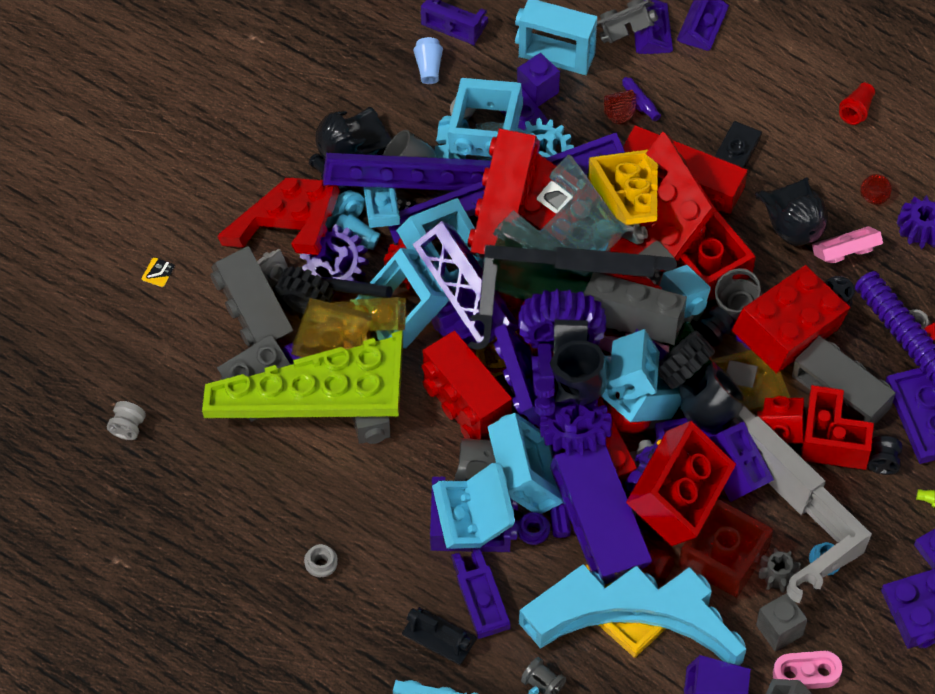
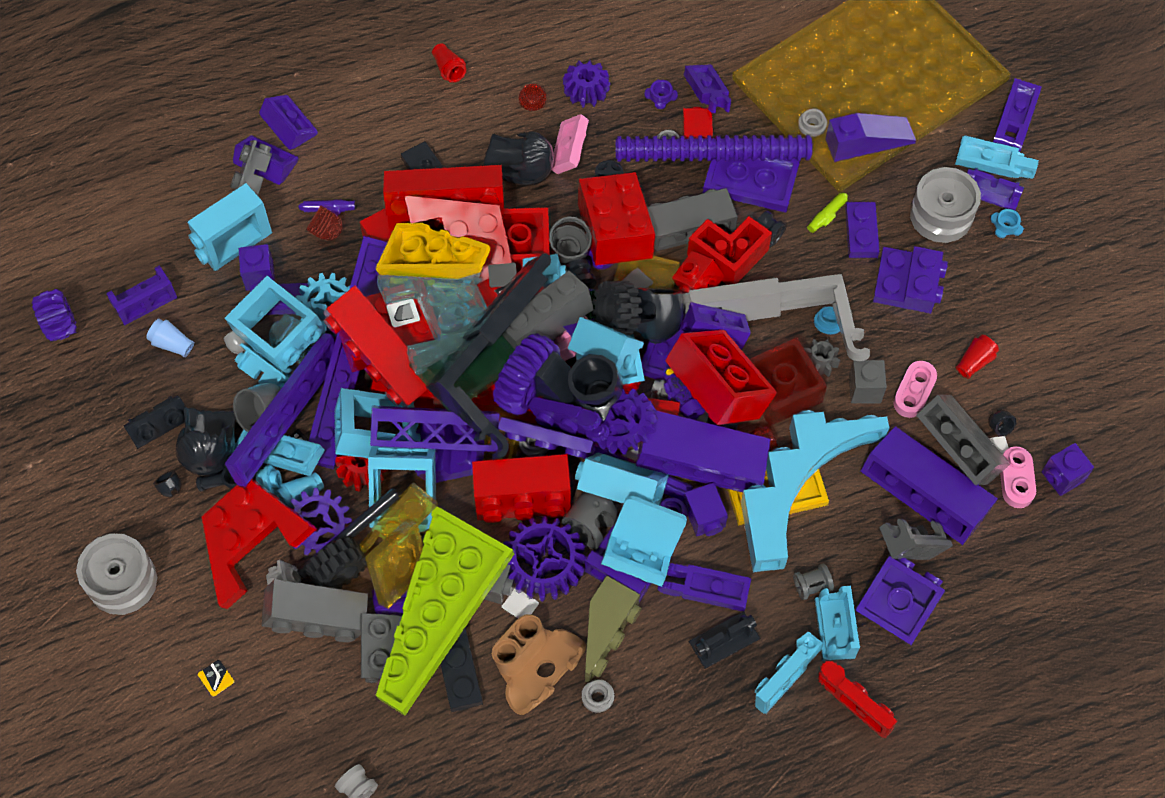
camera: 60 degrees left, 5 degrees up
(194, 146) = (117, 574): none -> light grey wheel
(276, 443) = (461, 676): none -> black plate
(299, 137) = (167, 483): none -> black hinge
(321, 478) = (524, 685): none -> medium nougat piece
(346, 95) = (161, 420): none -> black hinge
(367, 457) = (519, 604): none -> white sticker
(391, 528) = (608, 615): none -> olive slope
(440, 438) = (554, 564): none -> dark purple gear
(552, 552) = (705, 510): none -> dark purple brick
(719, 174) = (462, 184): none -> red brick

